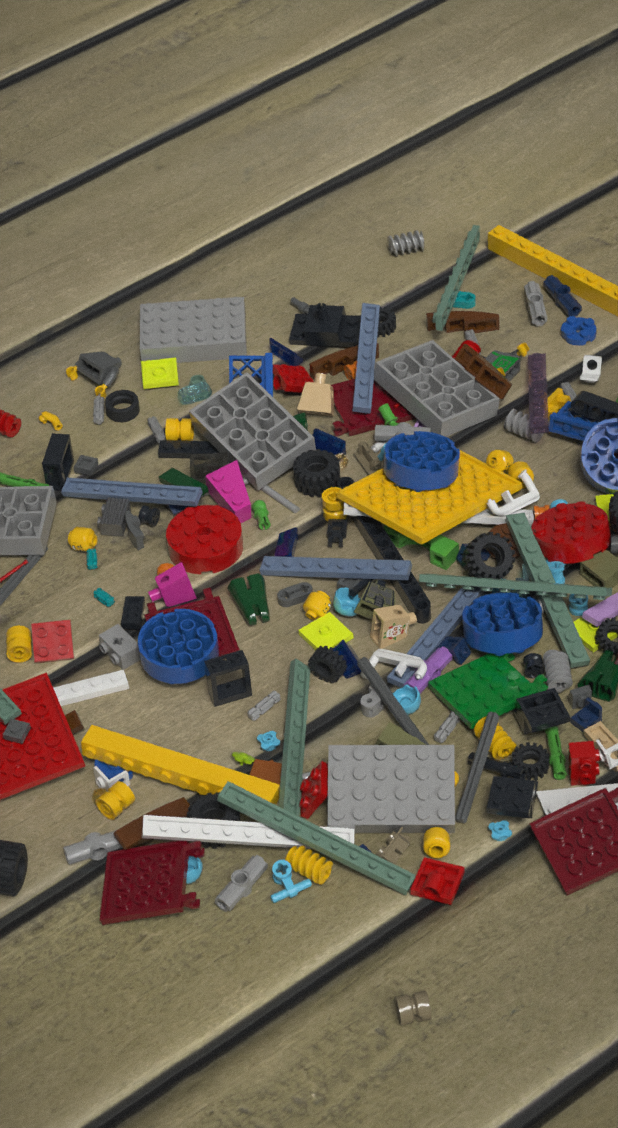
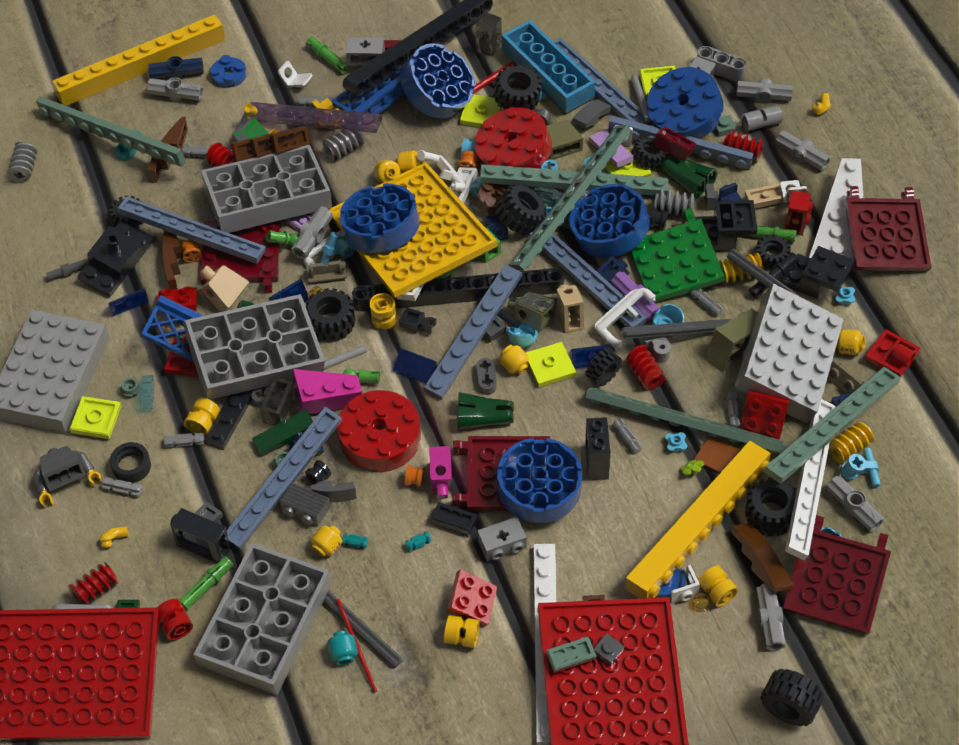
camera: 75 degrees left, 10 degrees up
(342, 695) = (645, 367): none -> red piece

